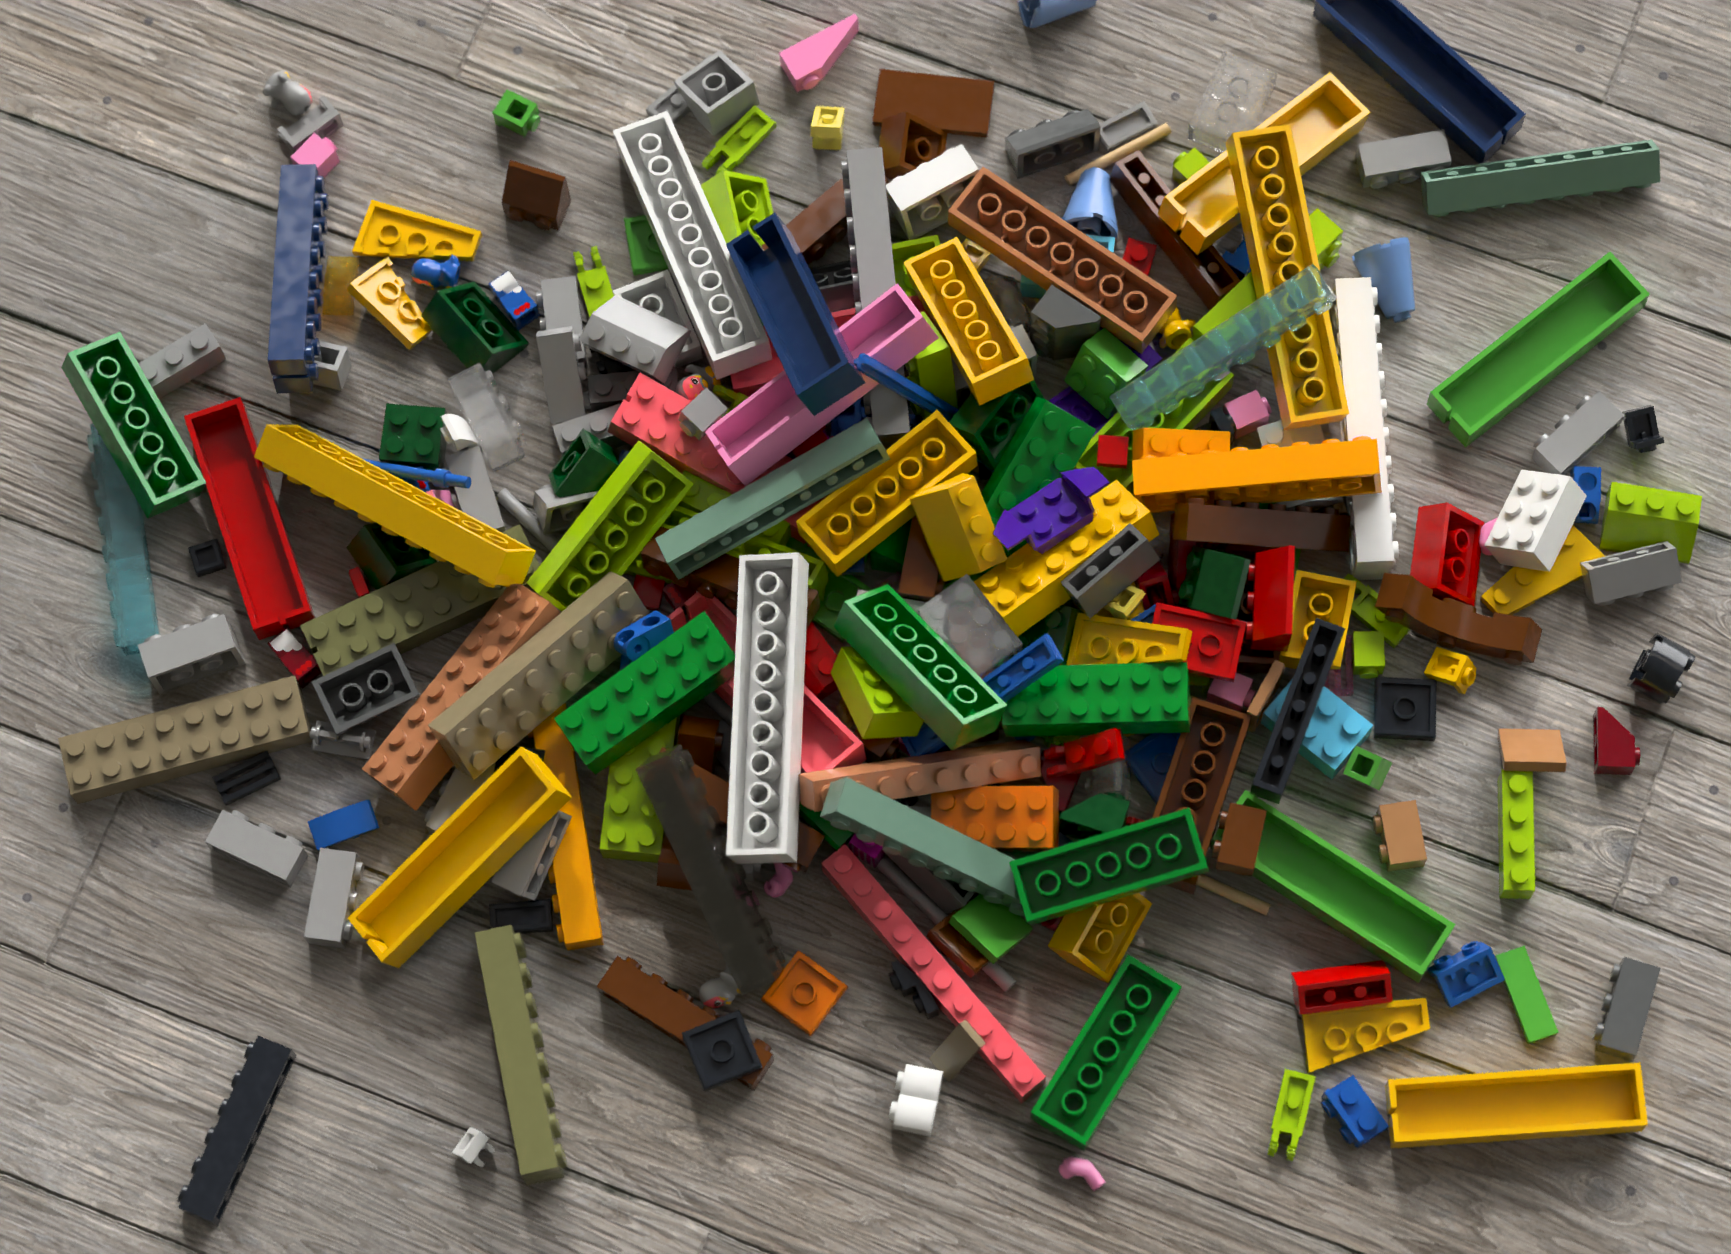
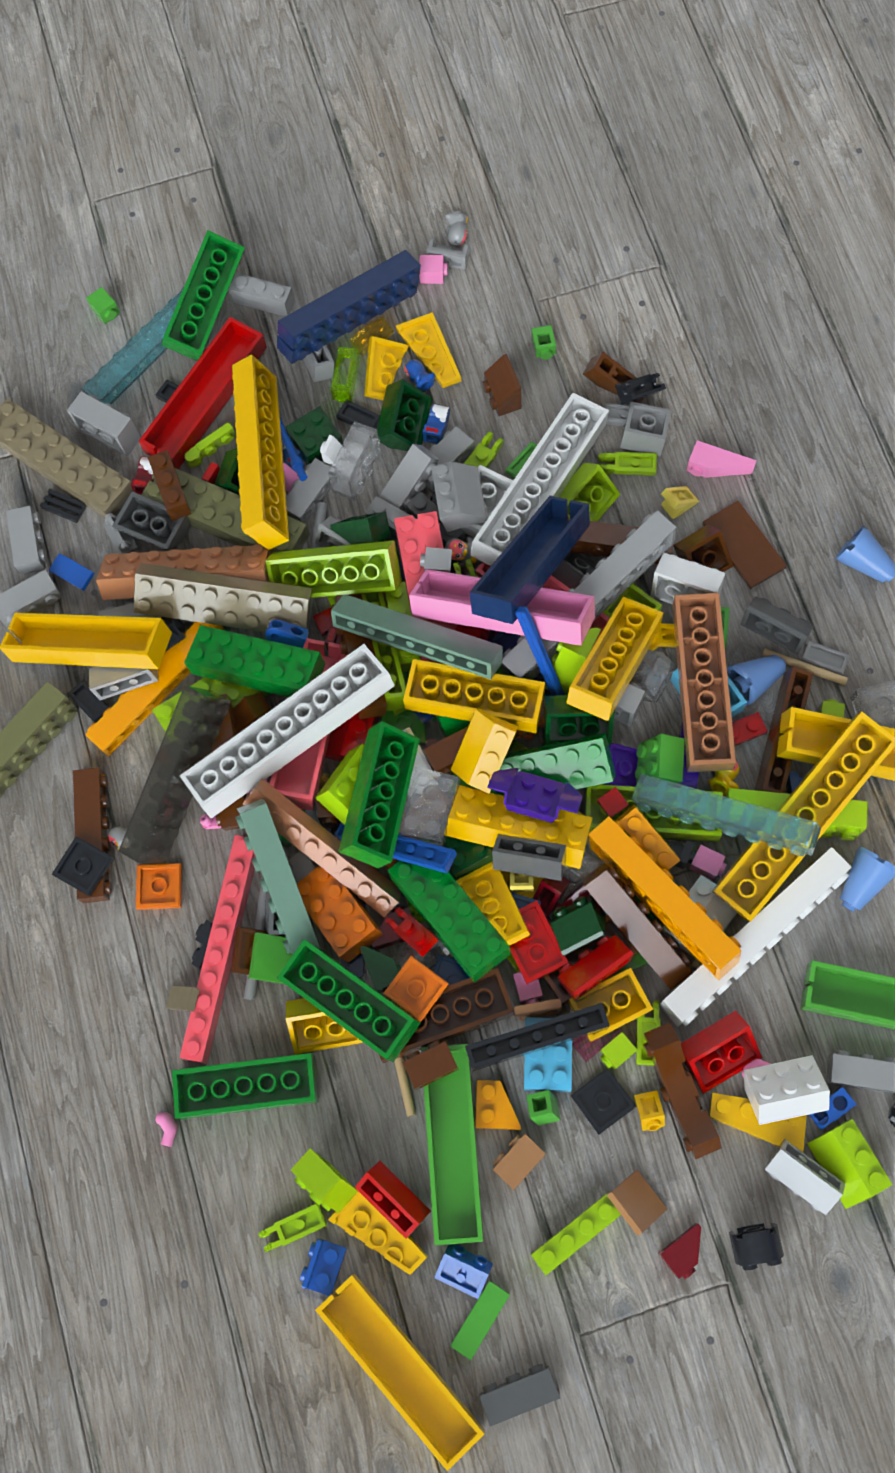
camera: 55 degrees right, 0 degrees up
(25, 549) = (103, 305): none -> bright green brick
(319, 561) = (209, 445): none -> lime hinge
(349, 631) = (169, 485): none -> reddish brown brick
(383, 370) = (344, 392): none -> clear neon green window
(426, 376) = (352, 412): none -> black tile
(626, 76) = (607, 373): none -> reddish brown slope
(664, 61) = (639, 388): none -> black hinge
(917, 1099) = (139, 998): white brick -> none
(1061, 325) = (664, 711): dark grey slope -> none
(1149, 789) = (415, 988): none -> orange tile
(1271, 1039) = (323, 1181): none -> lime brick
(1327, 817) = (494, 1107): none -> light orange wing

